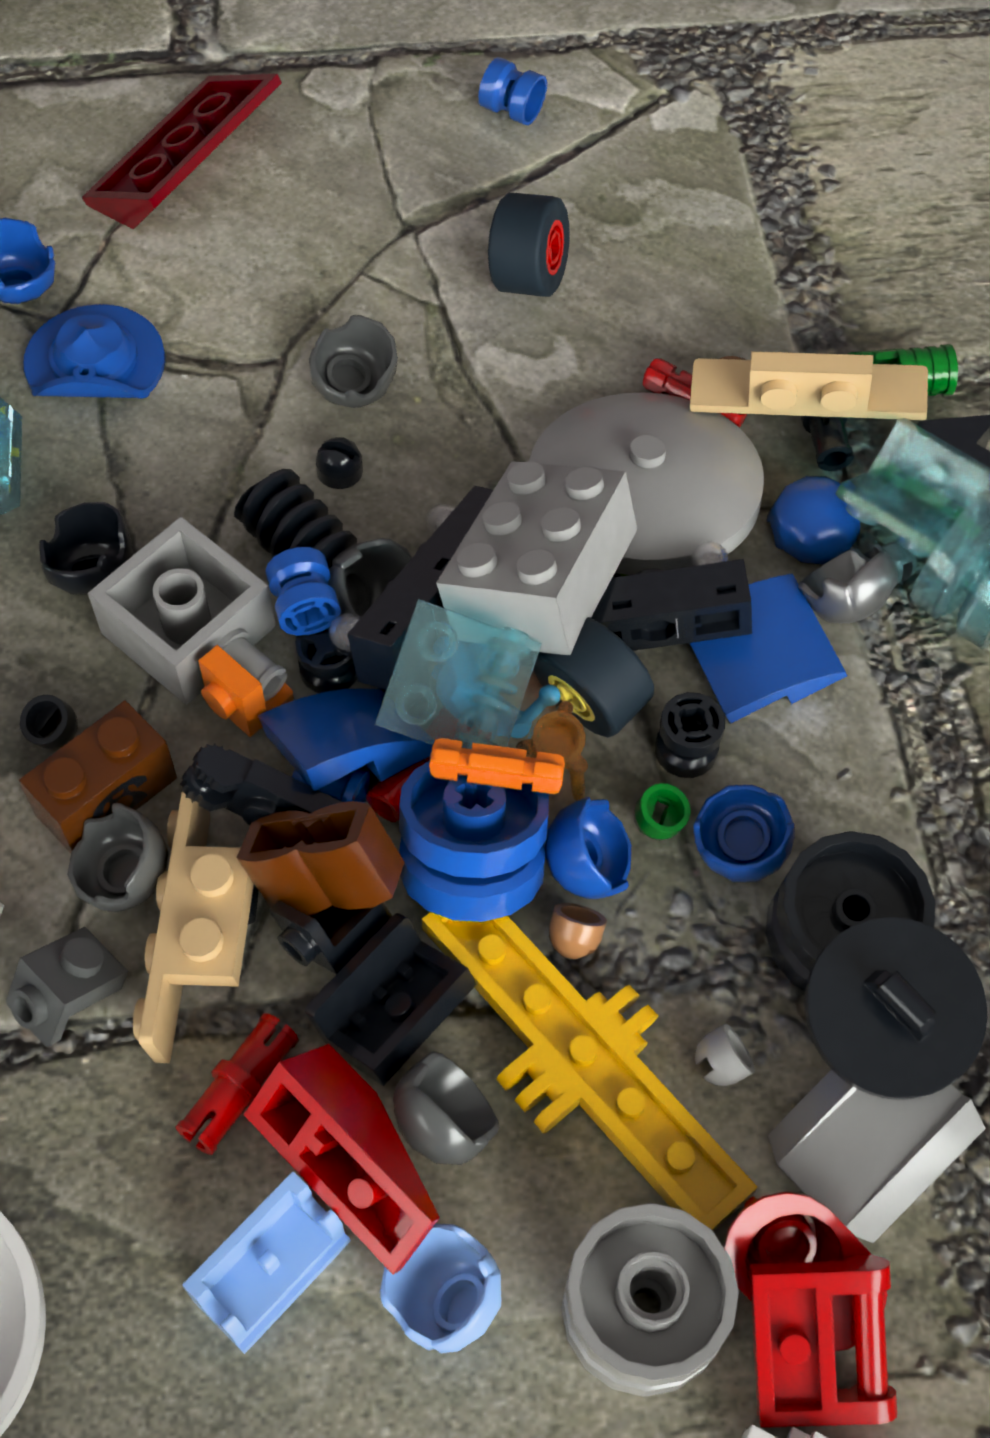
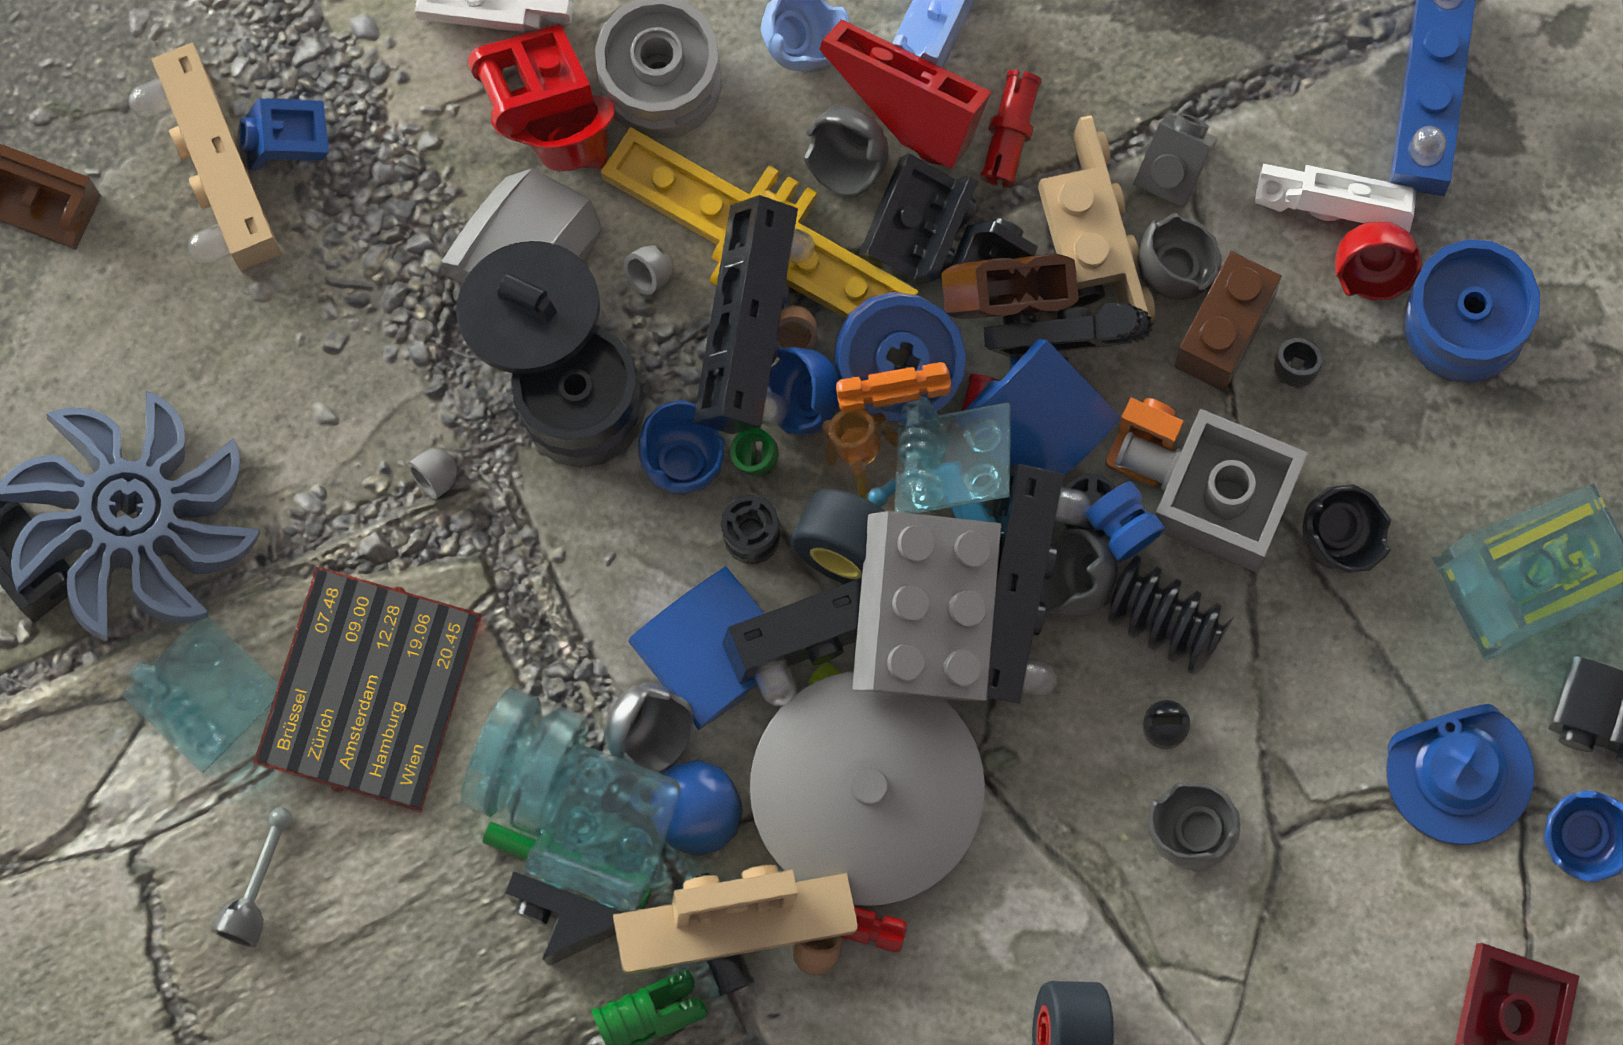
camera: 170 degrees right, 15 degrees up
(629, 931) = (747, 315): none -> black piece

